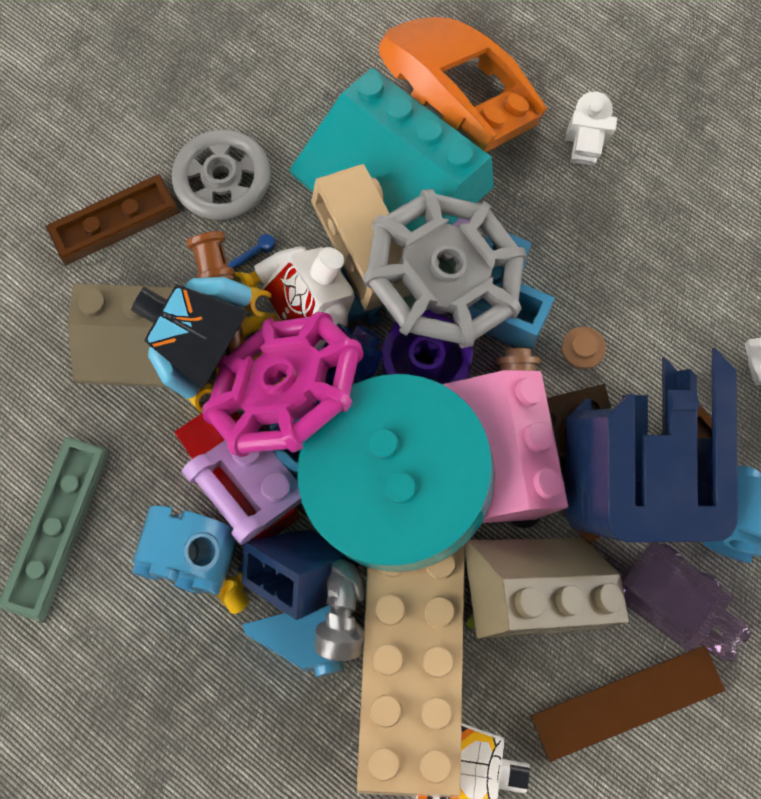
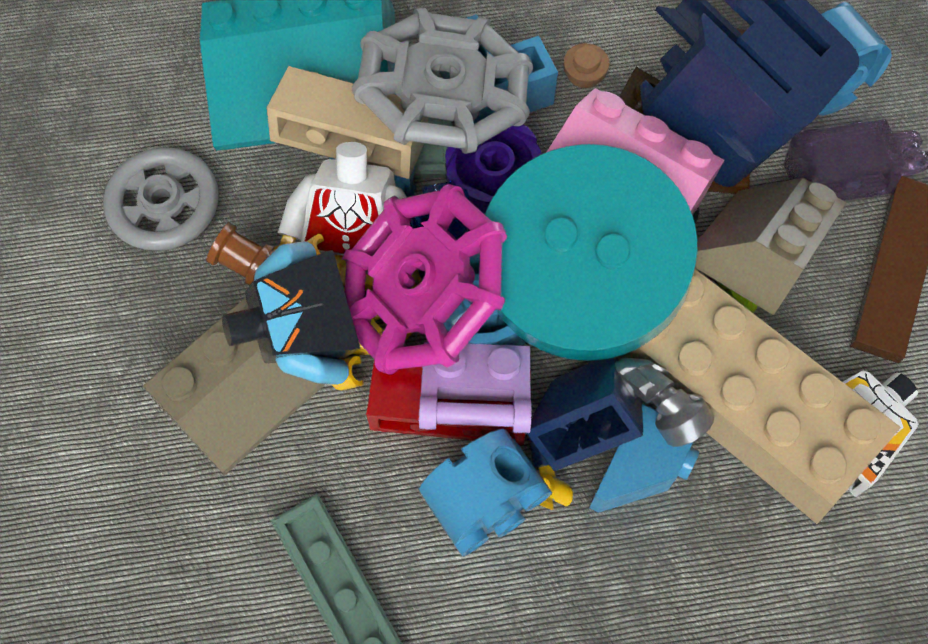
camera: 50 degrees left, 5 degrees down
(112, 219) = (104, 320): reddish brown tile -> none
(265, 244) = (259, 217): blue hinge -> none
(518, 360) = (554, 115): medium nougat plate -> none

